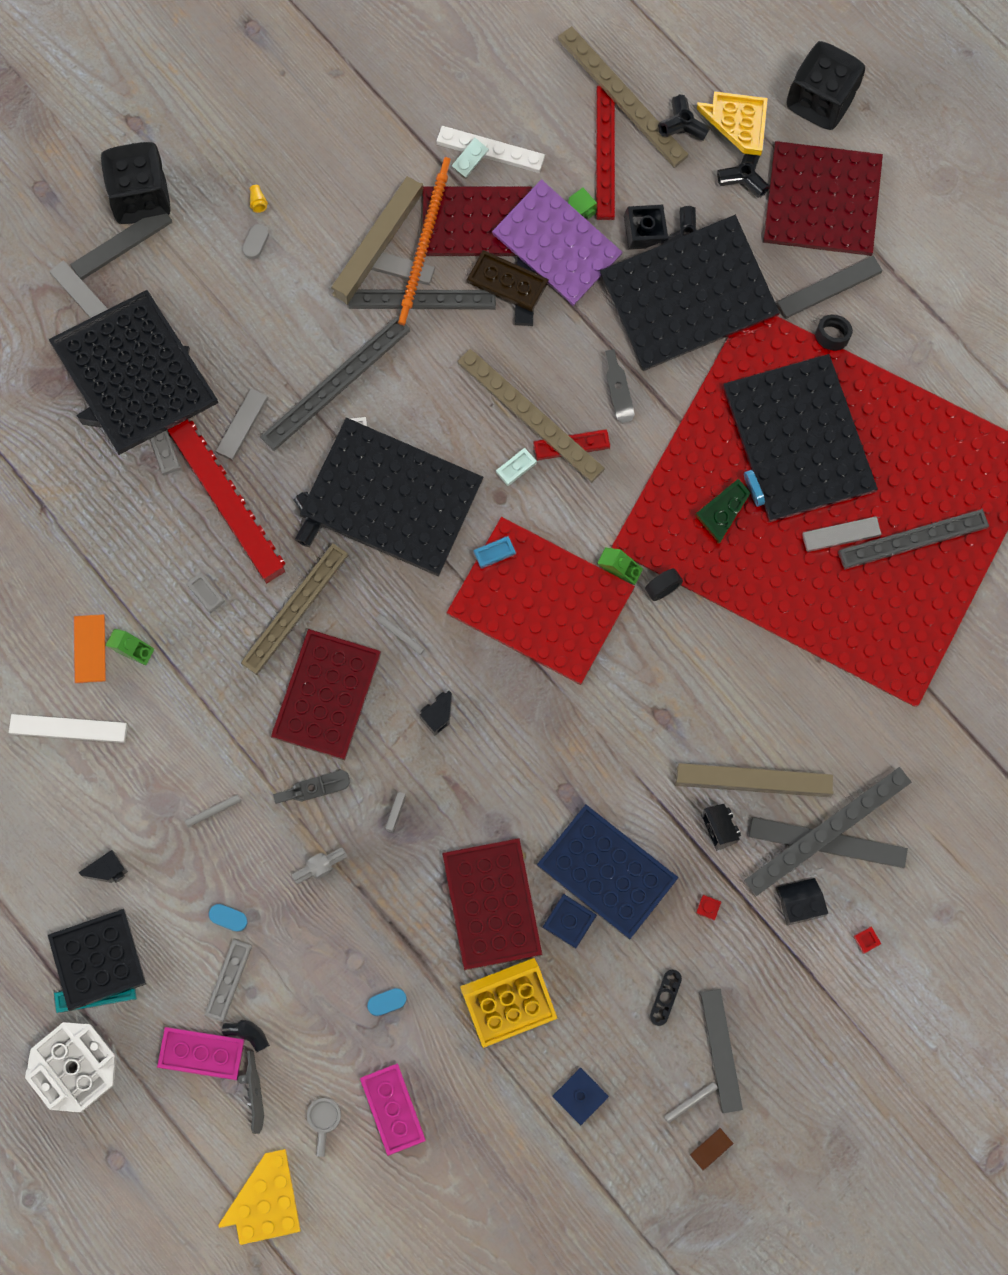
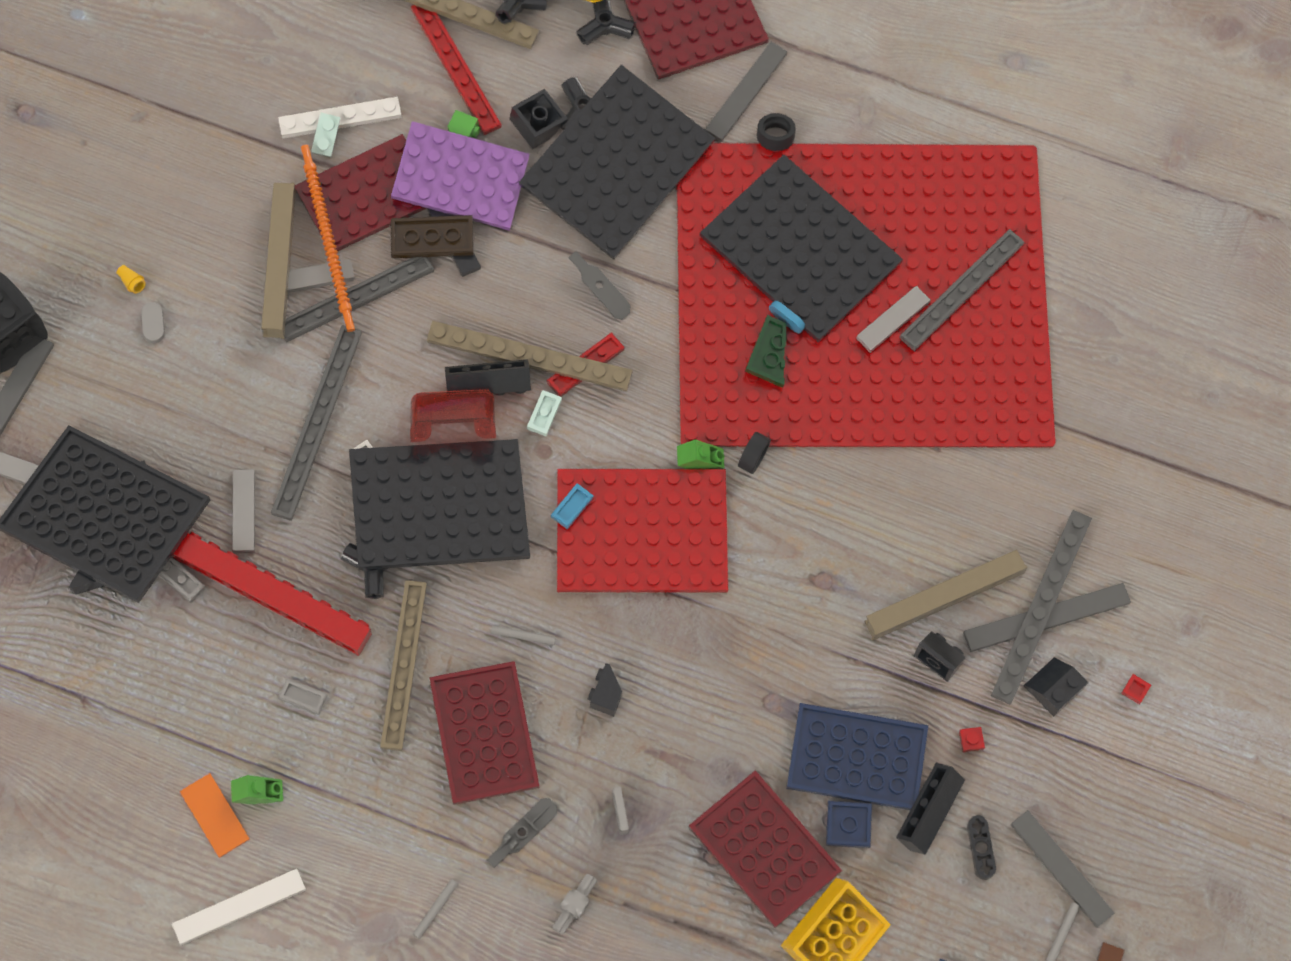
camera: 35 degrees left, 5 degrees down
(444, 426) = (452, 407): none -> clear red windscreen
(486, 416) = (494, 377): none -> black brick
(641, 944) = (930, 808): none -> black brick

